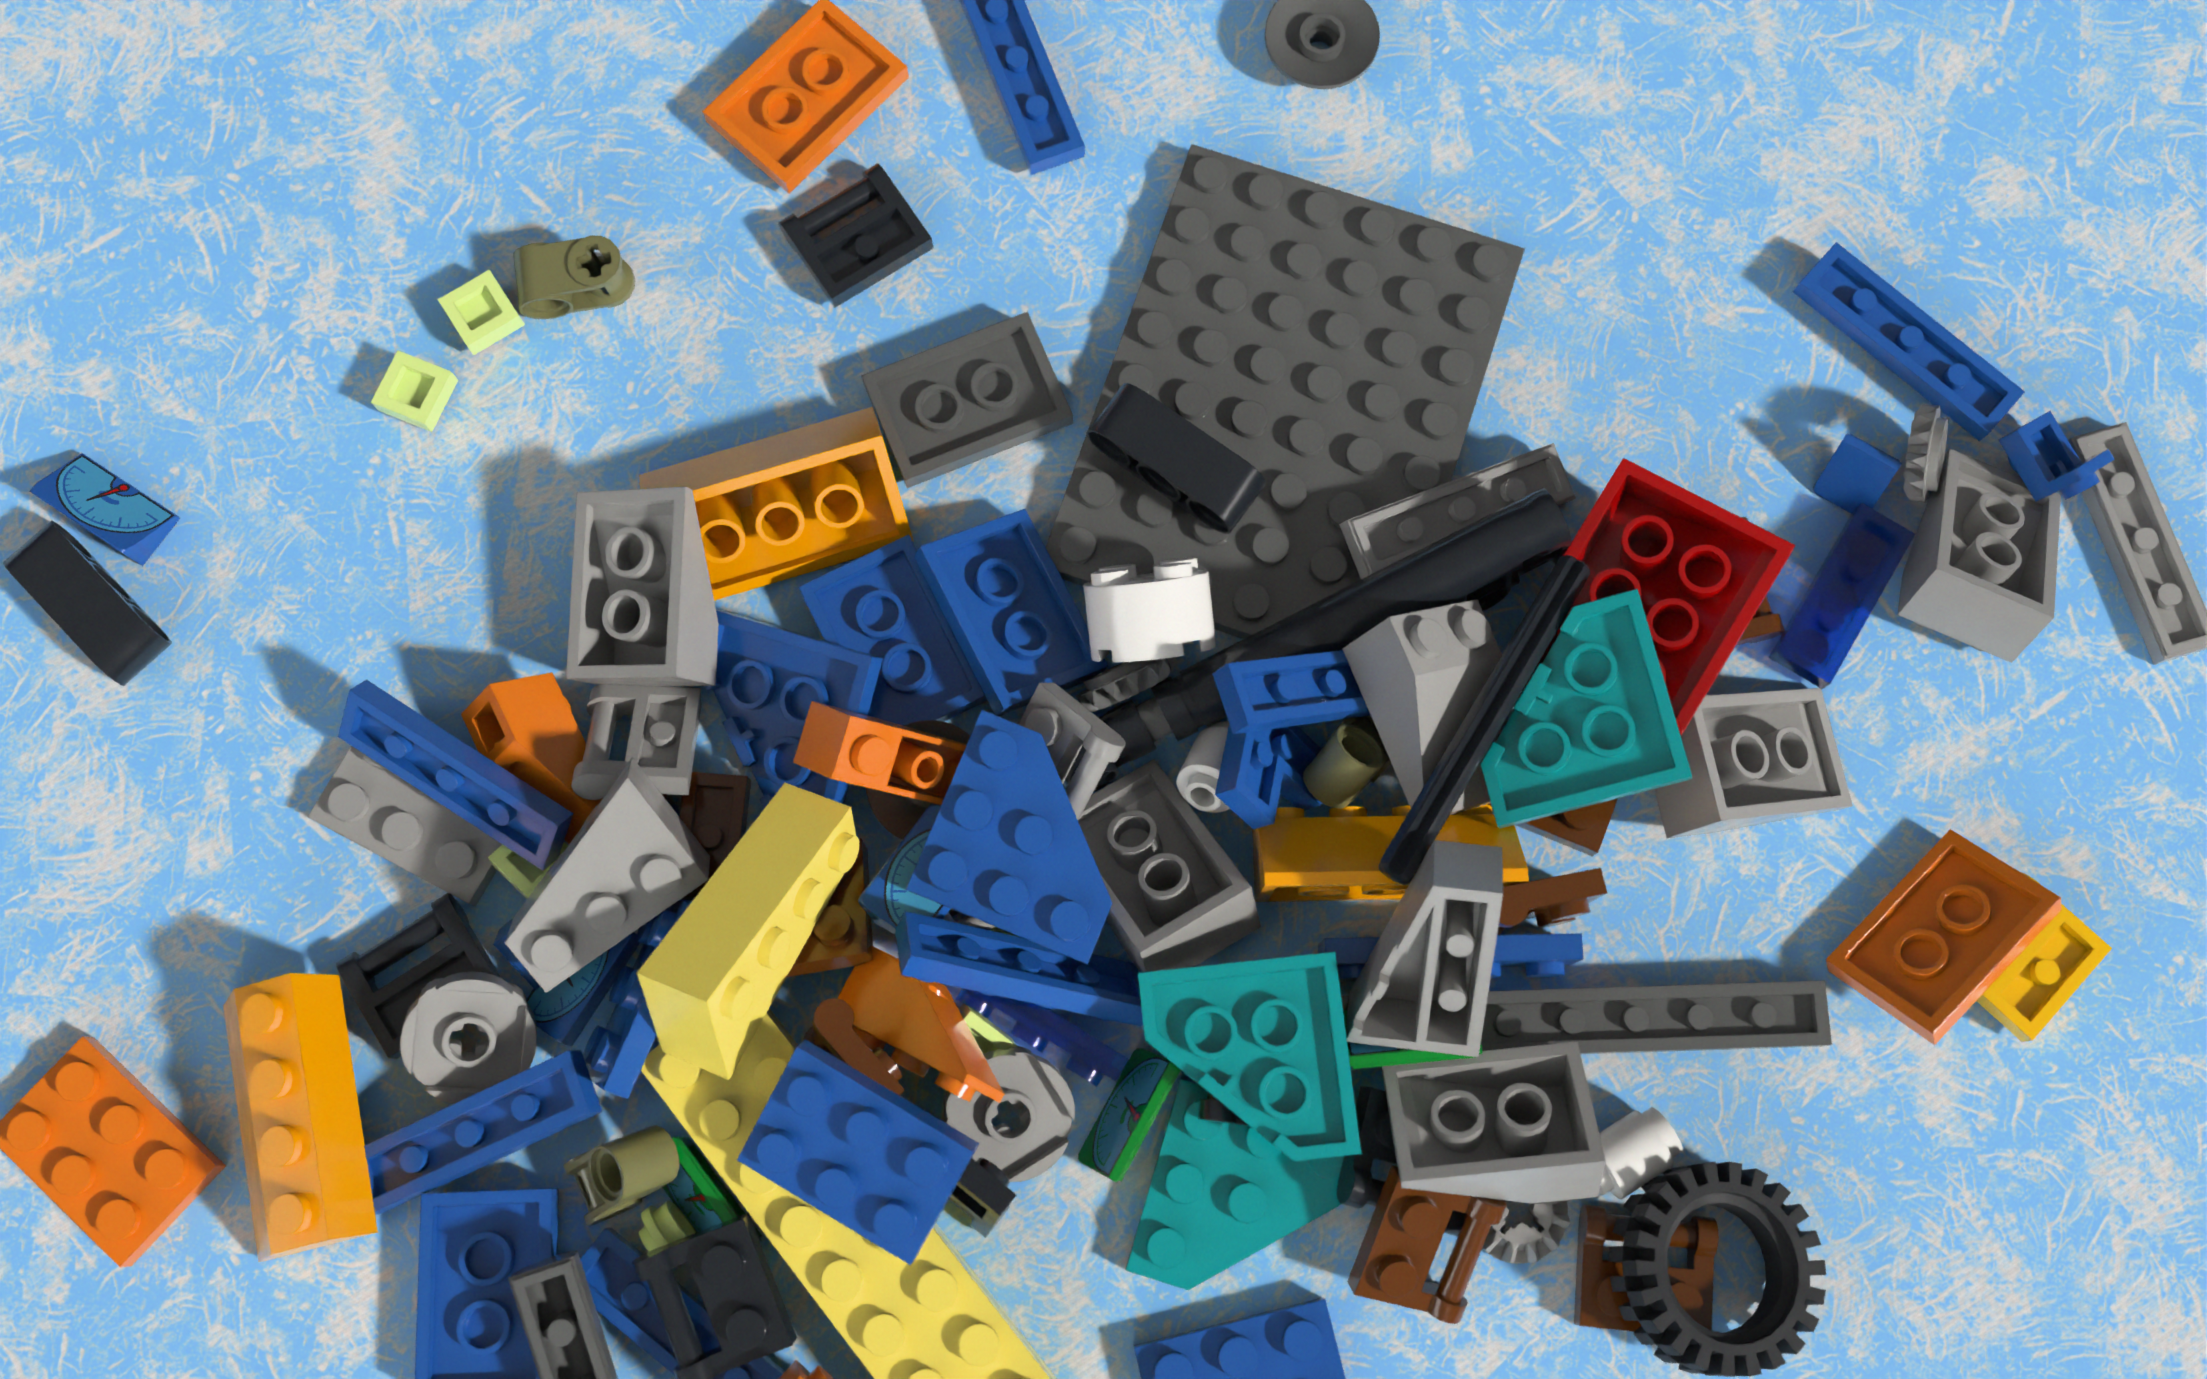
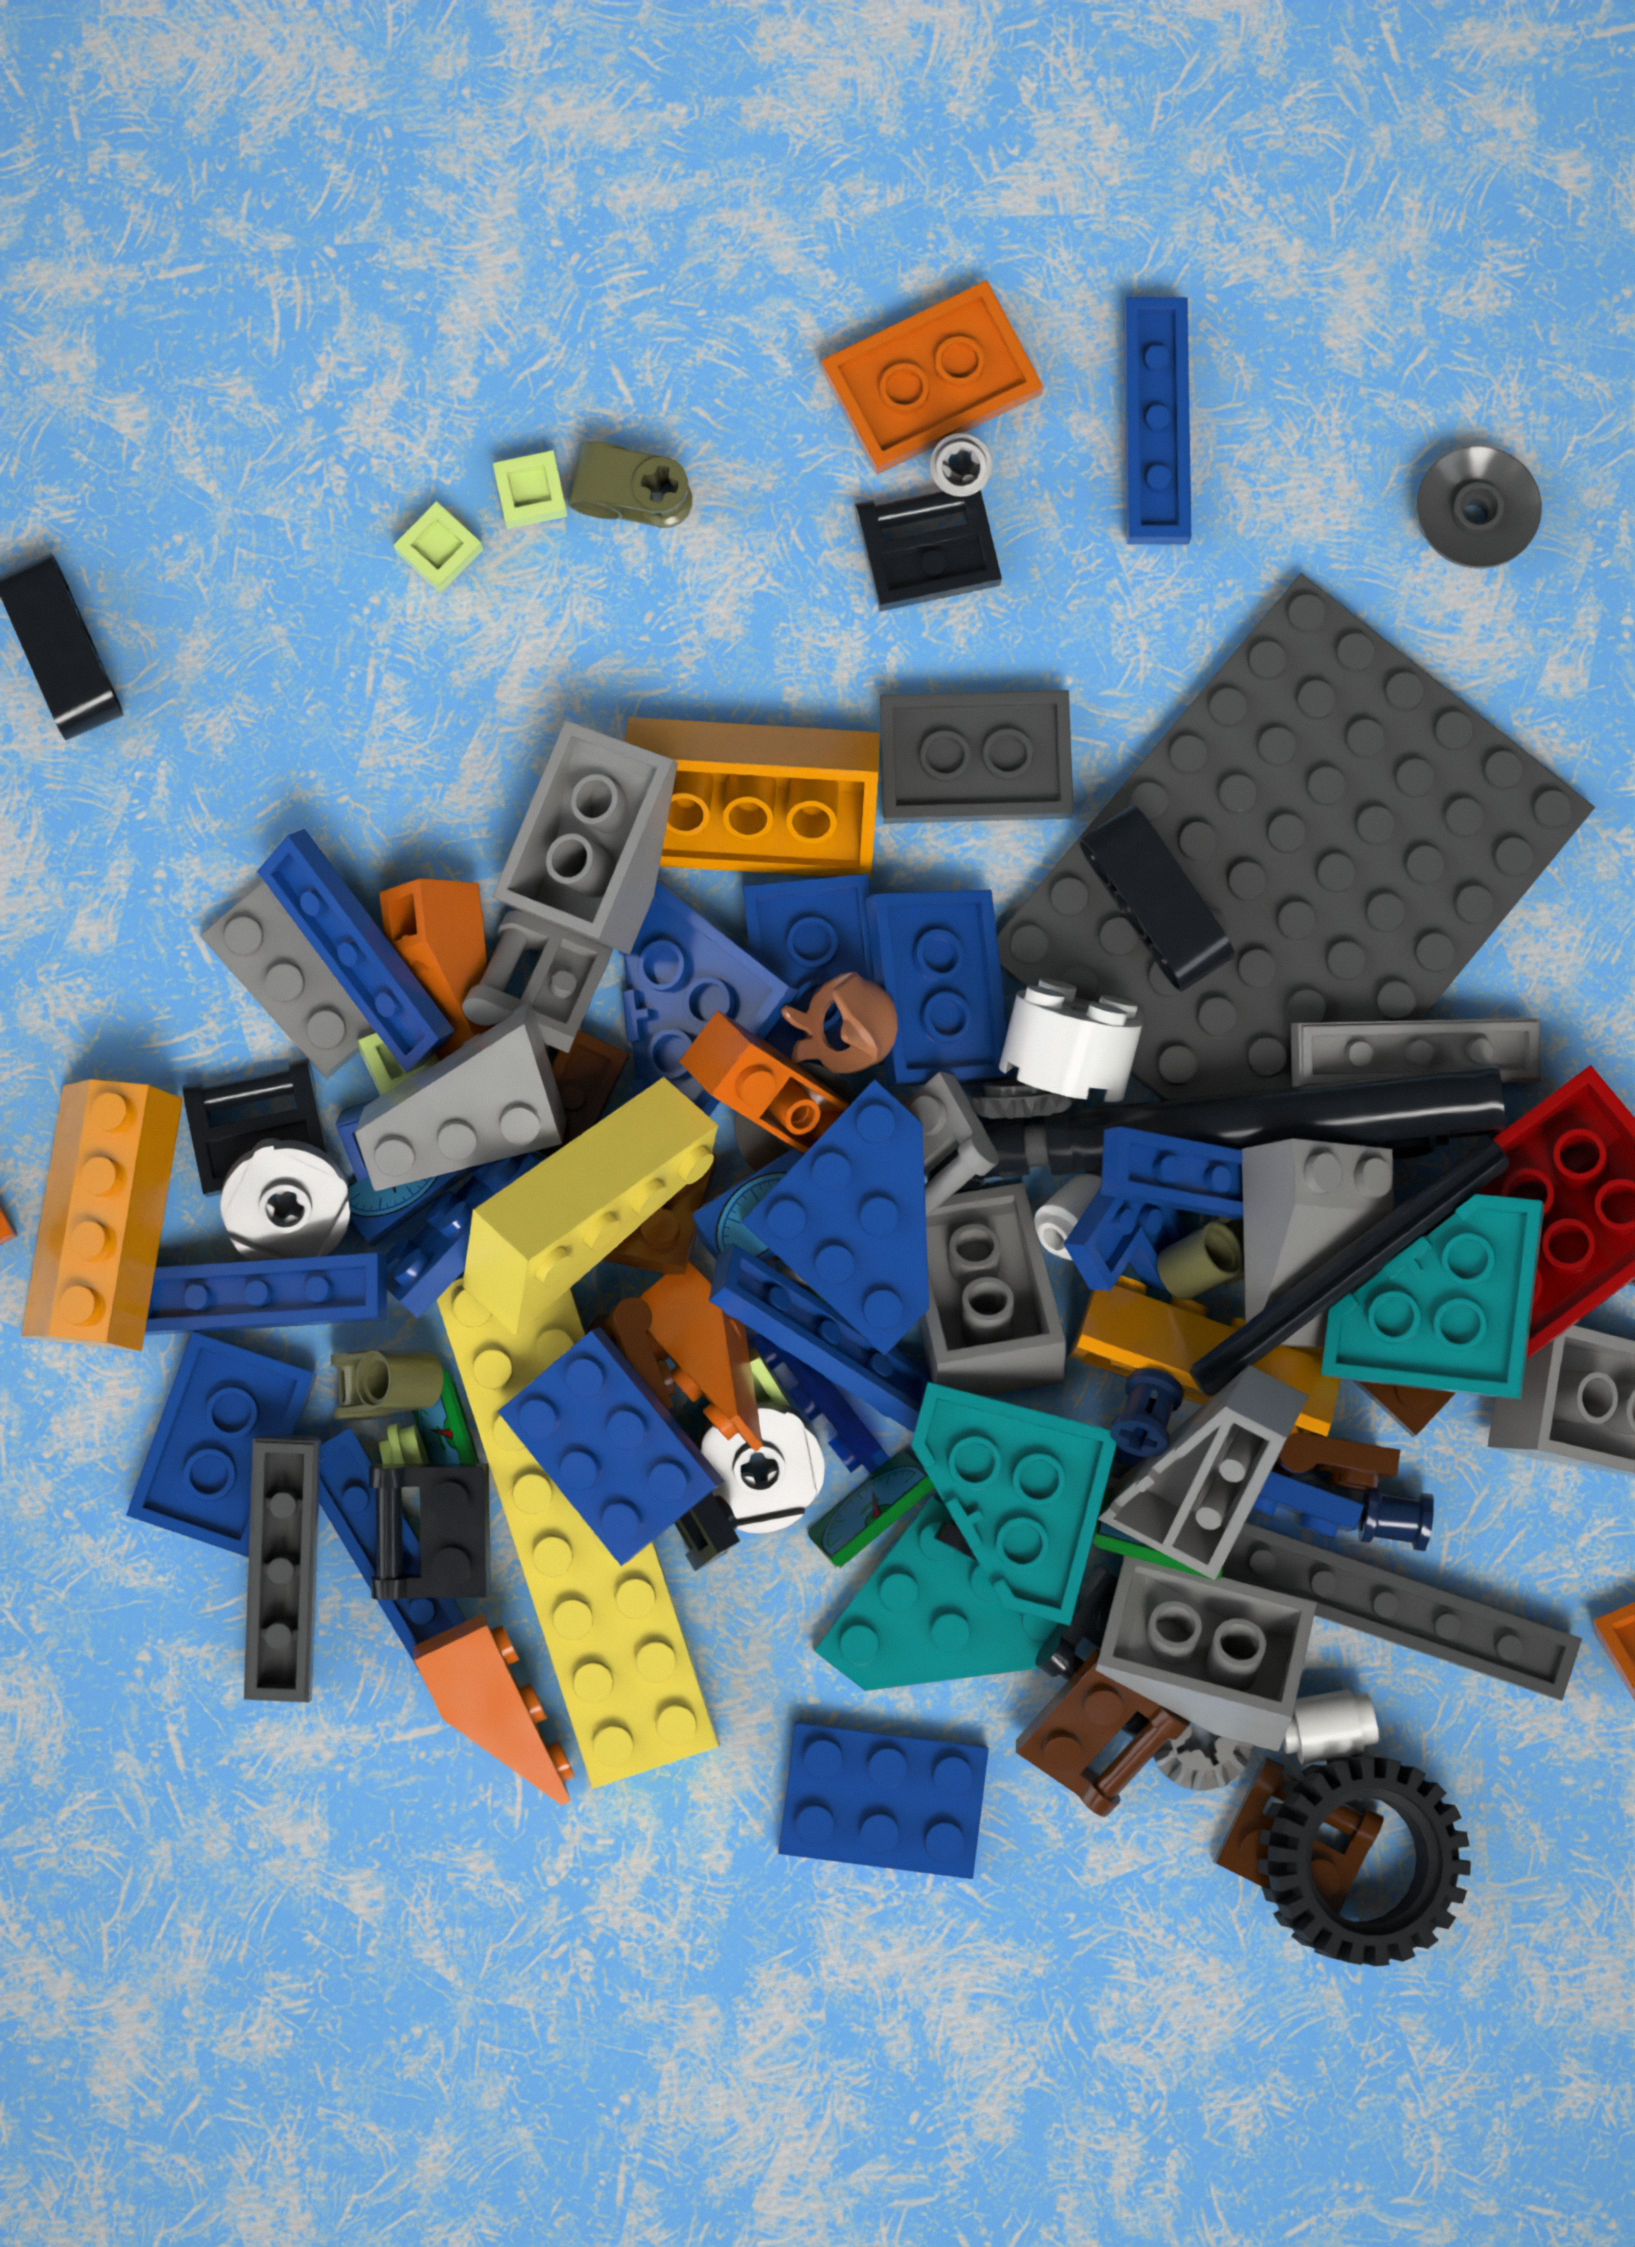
camera: 20 degrees right, 5 degrees up
(107, 507) = (105, 555): slope -> none
(860, 131) = (961, 480): none -> light grey cone
(955, 663) = (867, 1024): none -> nougat piece
(1354, 923) = (1154, 1422): none -> dark blue bush
(1613, 934) = (1396, 1518): none -> dark blue bush

